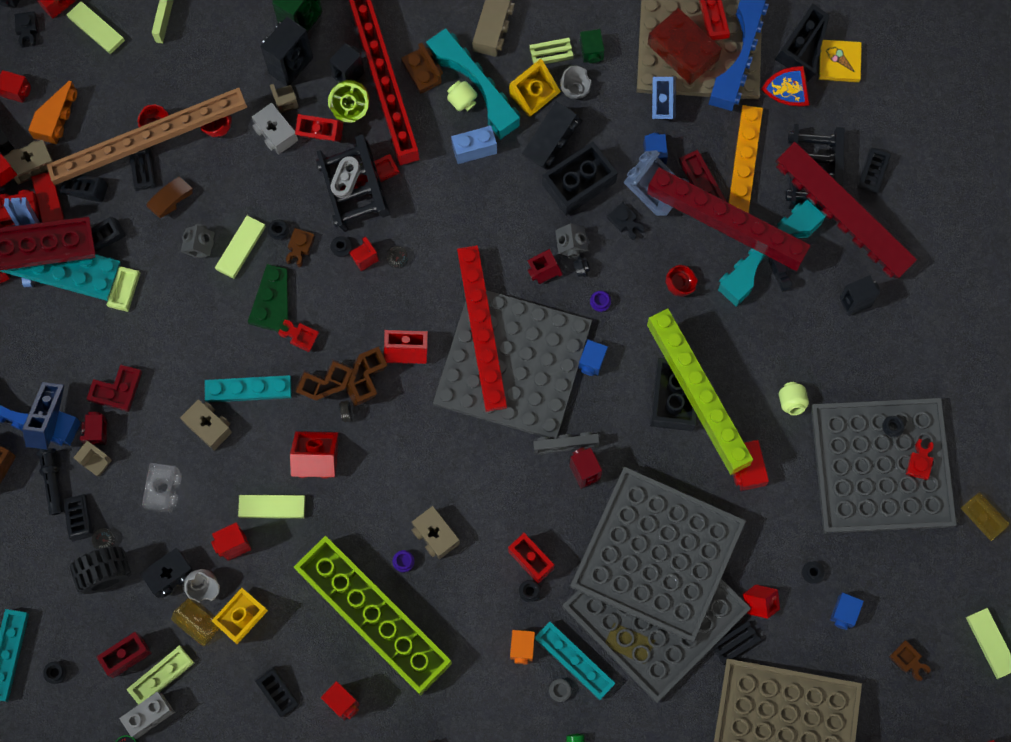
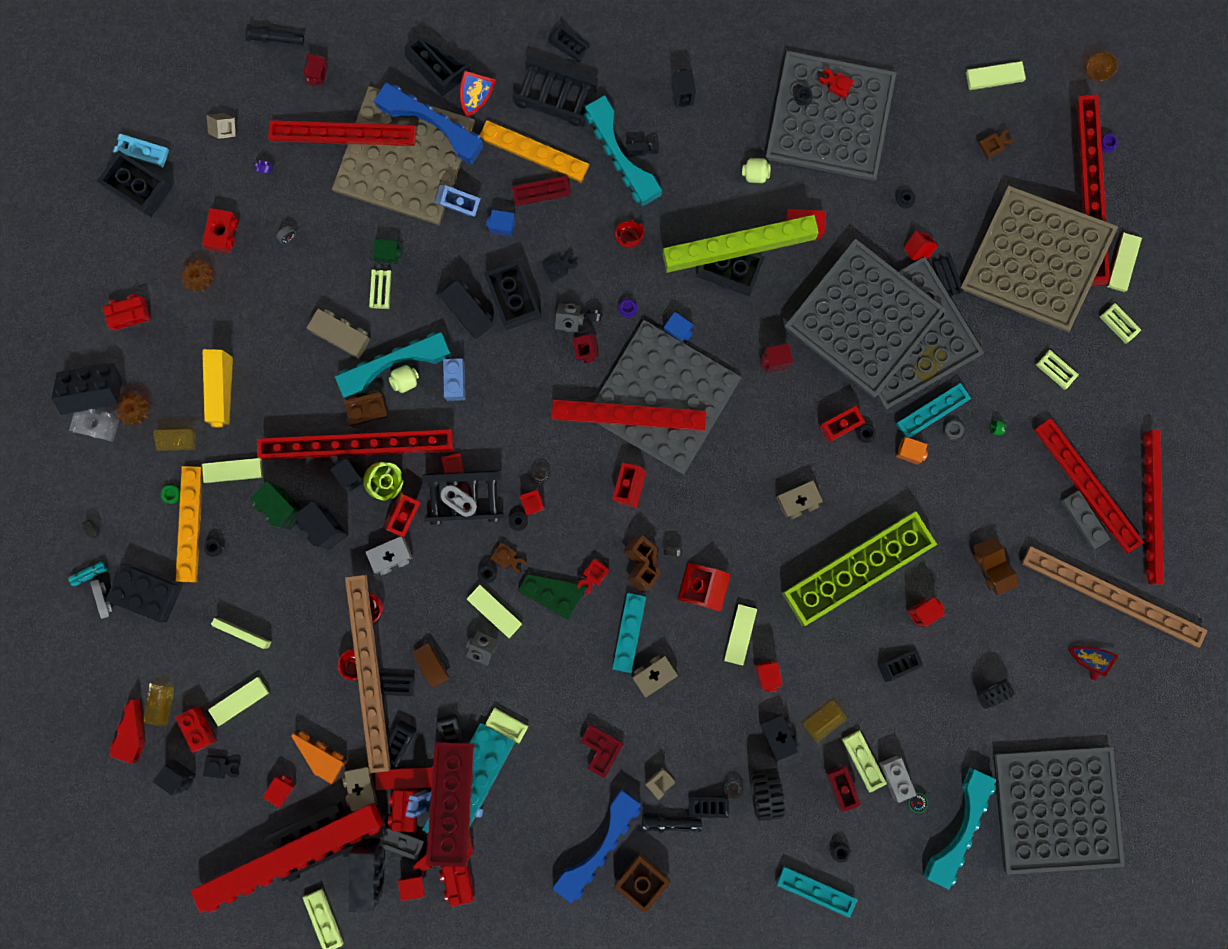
camera: 80 degrees left, 10 degrees up
(43, 416) = (615, 818): dark blue slope -> none
(94, 429) = (633, 776): dark red brick -> none
(158, 475) = (710, 735): clear brick -> none
(201, 585) = (797, 709): light grey hair -> none
(239, 615) = (833, 681): yellow slope -> none
(284, 98) = (360, 540): dark tan panel -> none
(359, 384) = (638, 524): reddish brown brick -> none
(403, 561) = (815, 532): dark purple plate -> none
(533, 88) = (415, 313): yellow slope -> none
(565, 443) = (747, 370): dark grey plate -> none
(575, 82) = (419, 275): light grey hair -> none
(640, 177) = (536, 230): sand blue panel -> none
(684, 46) = (413, 169): clear red brick -> none
(727, 219) = (589, 177): dark red brick -> none
(840, 61) = (460, 40): yellow tile -> none
(845, 210) = (604, 77): dark red brick -> none
(846, 611) = (945, 181): blue brick -> none
(985, 516) = (891, 48): clear yellow slope -> none

